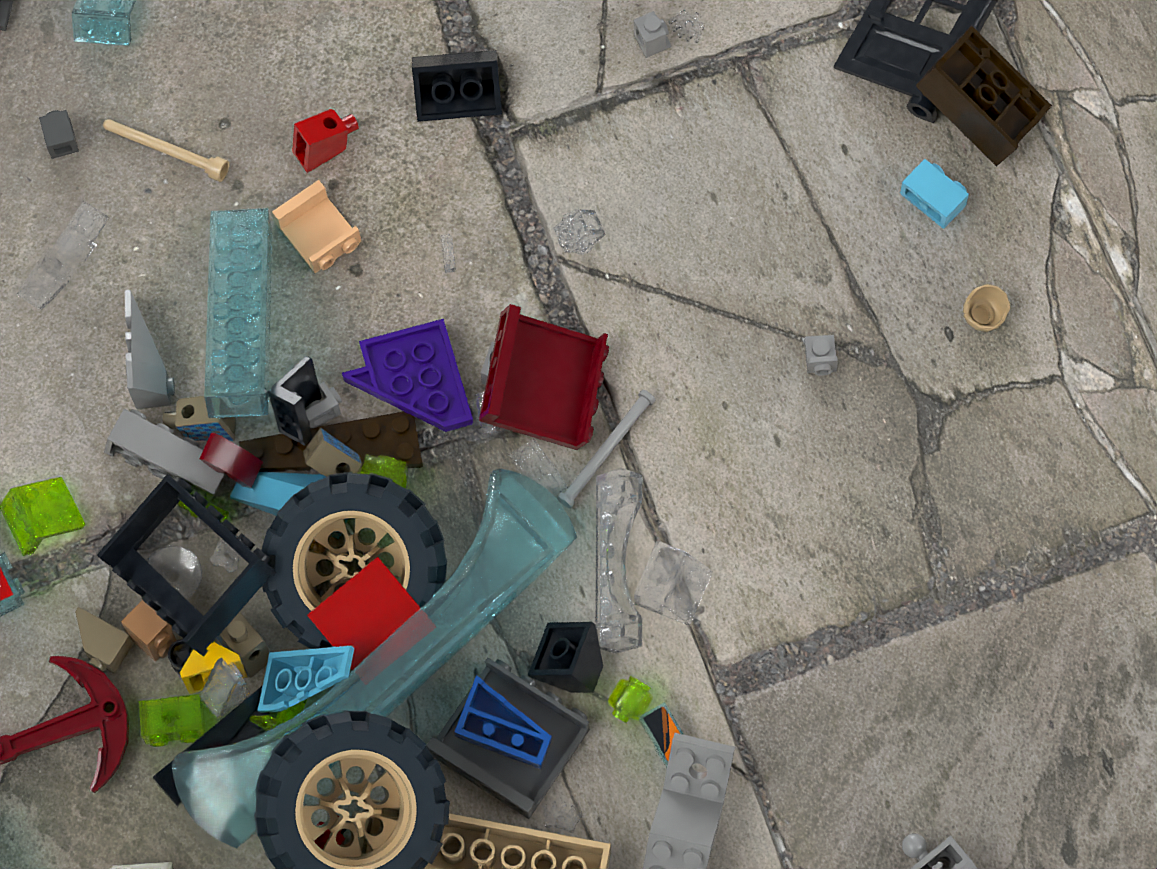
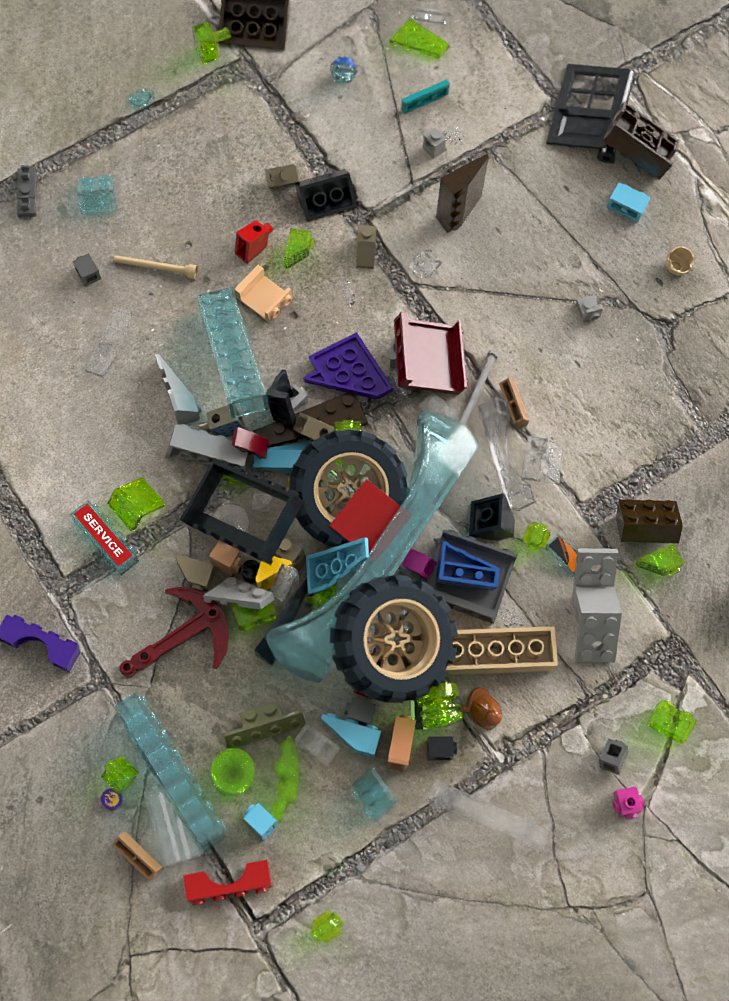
camera: 20 degrees left, 0 degrees up
(155, 686) = (239, 592): none -> light grey wing
(389, 162) = (298, 246): none -> clear neon green slope
(398, 41) = (282, 175): none -> dark tan torso
(436, 701) = (419, 563): none -> dark pink brick
(496, 183) = (366, 246): none -> dark tan slope
(659, 482) = (509, 383): none -> medium nougat piece
(661, 130) = (460, 193): none -> dark brown slope
(807, 714) = (649, 521): none -> dark brown brick
(813, 781) = (662, 561): none -> clear neon green slope

